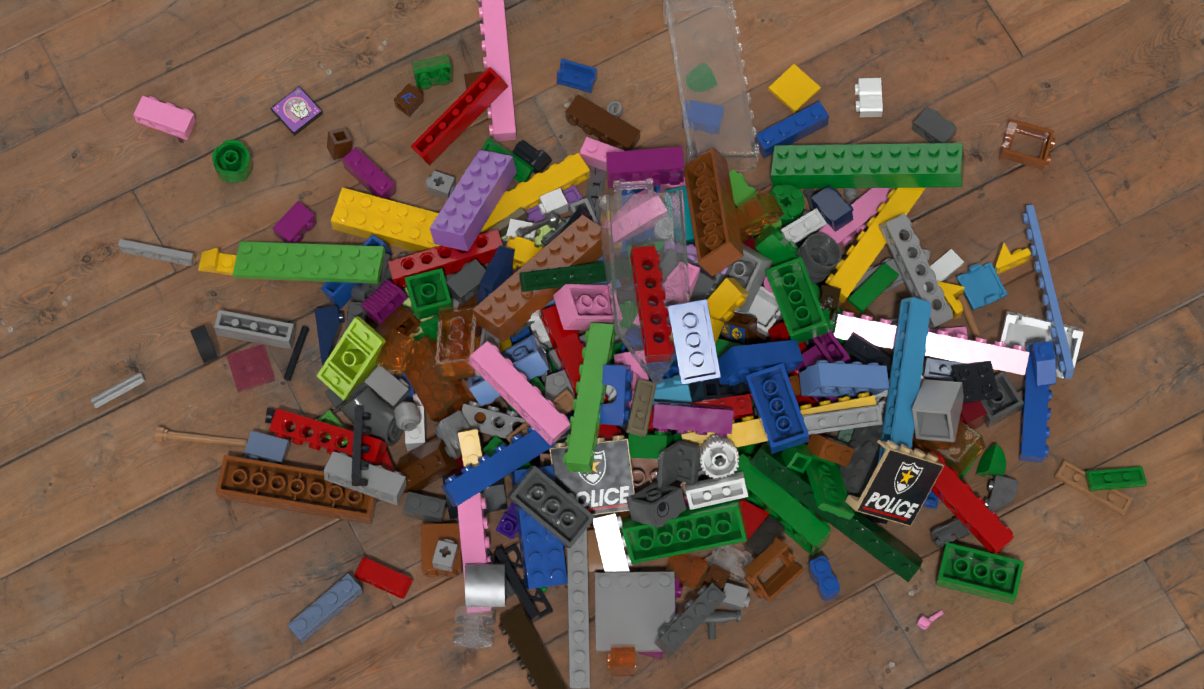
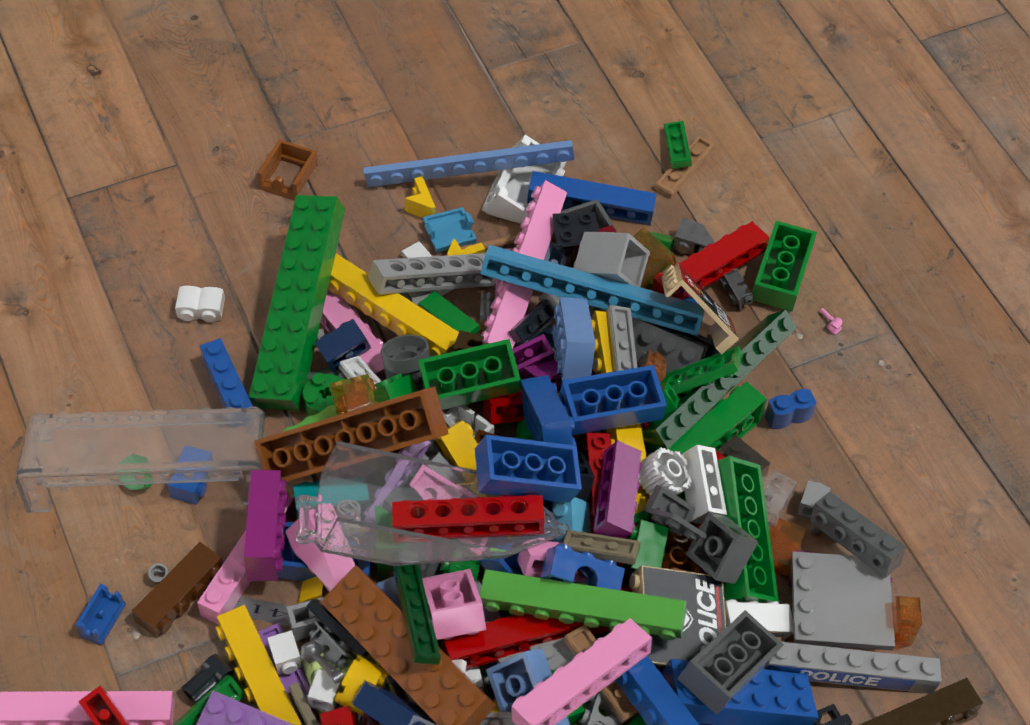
camera: 90 degrees left, 15 degrees down
(717, 576) = (794, 511): reddish brown brick -> none
(780, 579) = (786, 453): dark orange window -> none
(794, 88) = (170, 379): yellow tile -> none
(934, 127) = (252, 247): dark grey brick -> none
(1043, 363) = (556, 172): blue slope -> none

